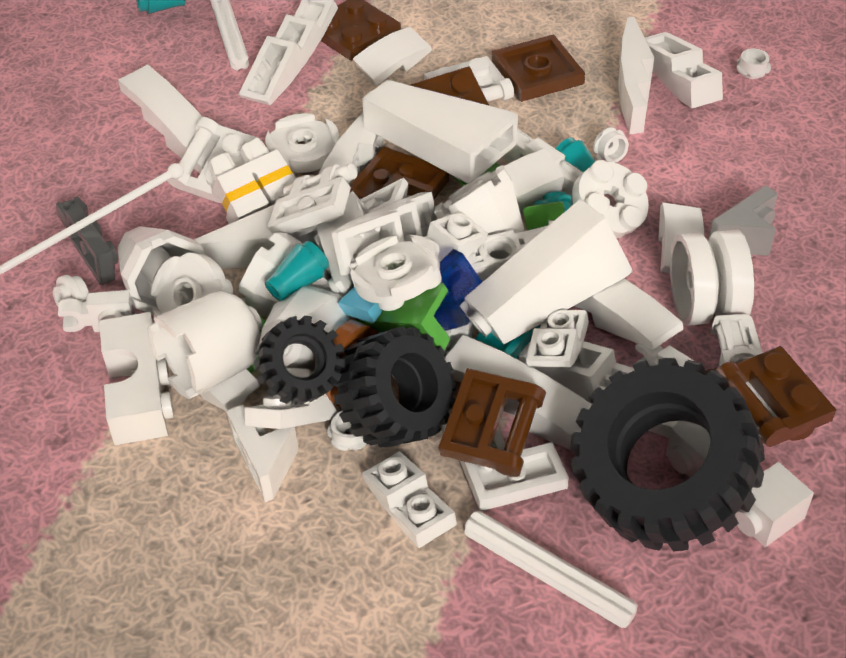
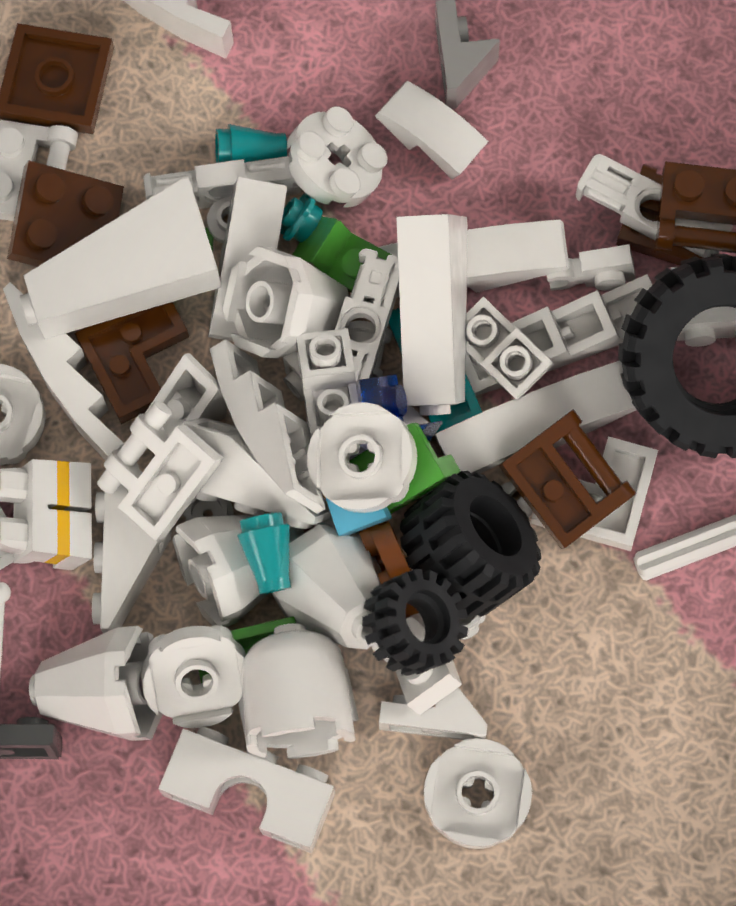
camera: 55 degrees left, 25 degrees up
(70, 287) = (70, 799): white plate -> none
(97, 307) = (132, 772): white plate -> none
(224, 533) = (502, 775): none -> white plate
(408, 500) = (576, 607): white slope -> none
(611, 145) = (241, 95): white plate -> none
(711, 276) = (524, 150): white wheel -> none

